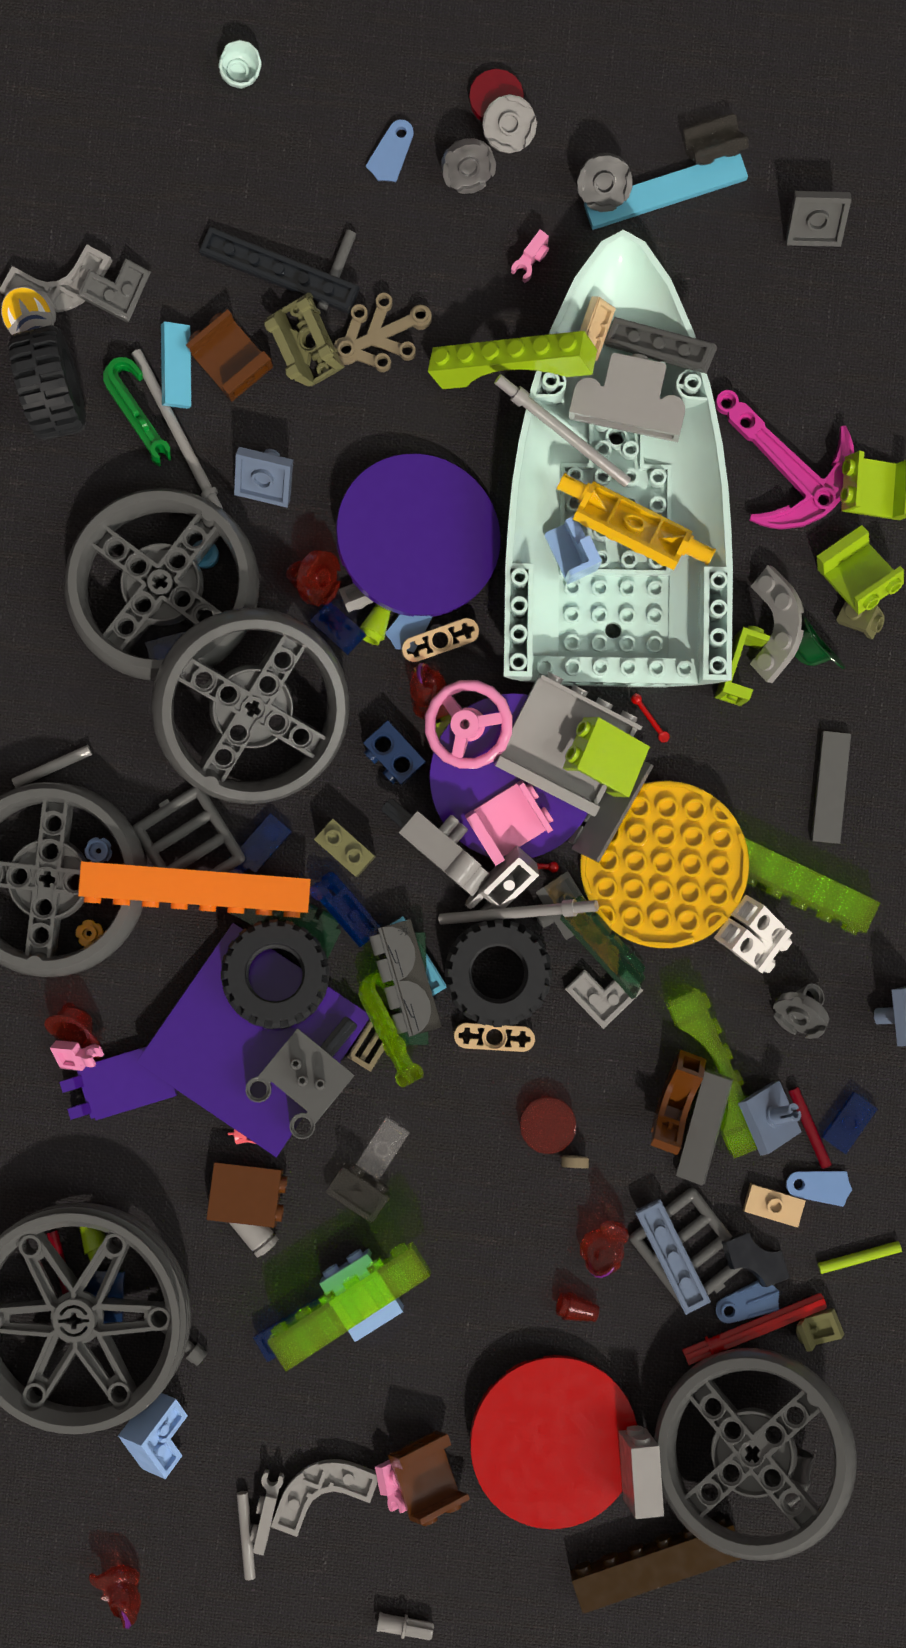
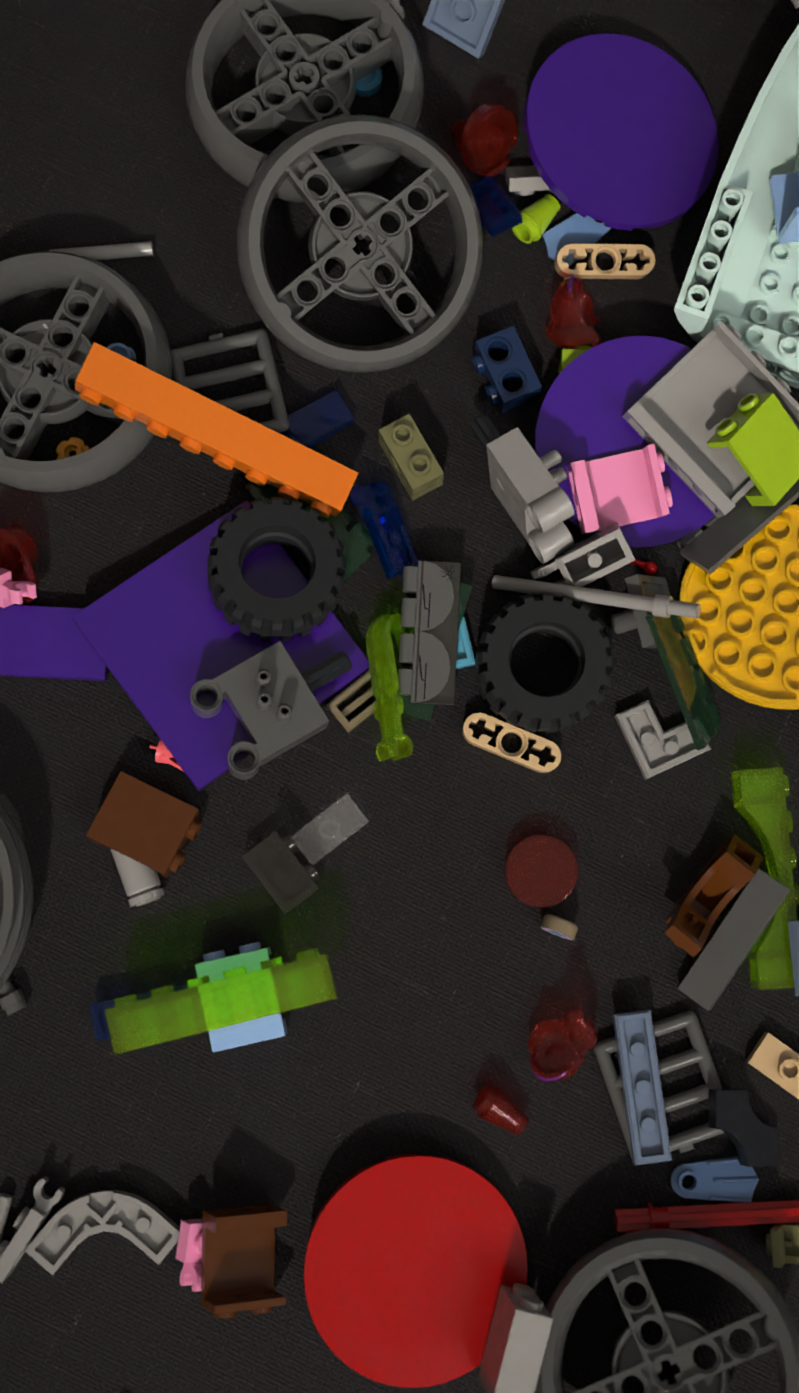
camera: 15 degrees right, 5 degrees down
(468, 724) = (610, 355): bright pink piece -> none

